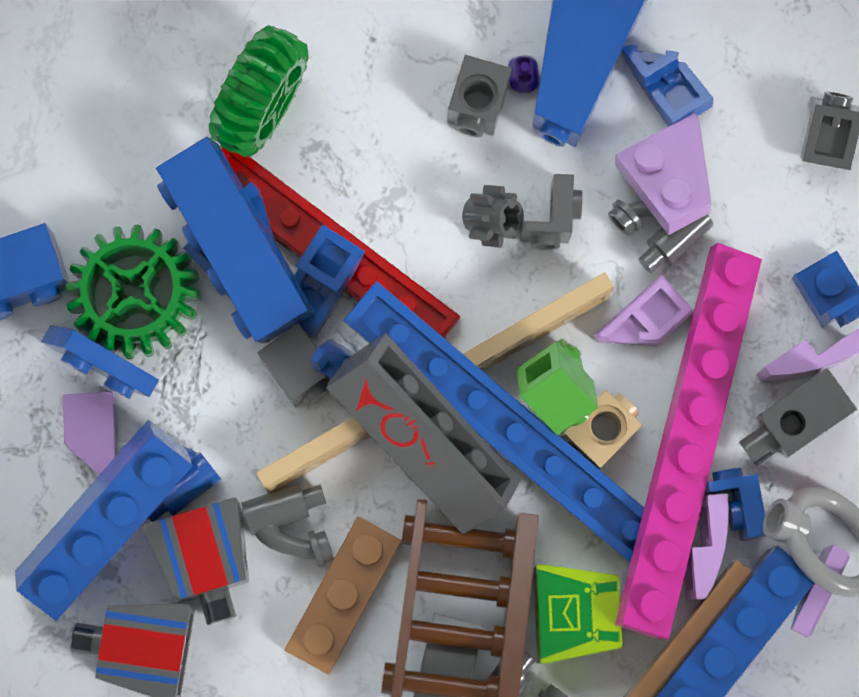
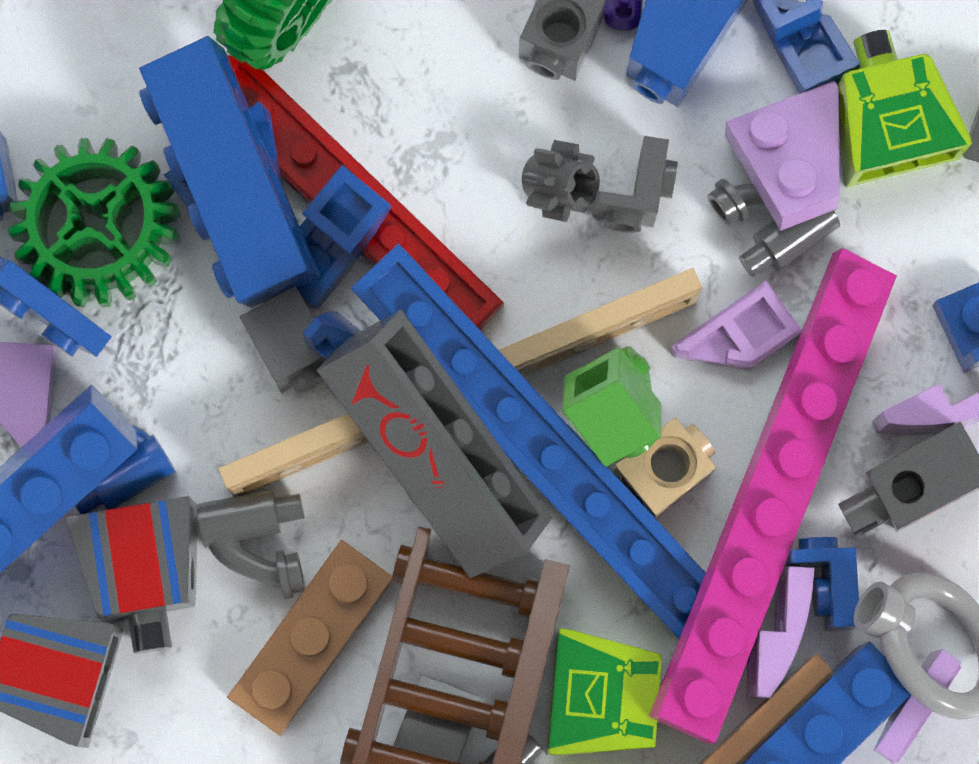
camera: 10 degrees right, 0 degrees up
(745, 133) = (895, 114): none -> torso

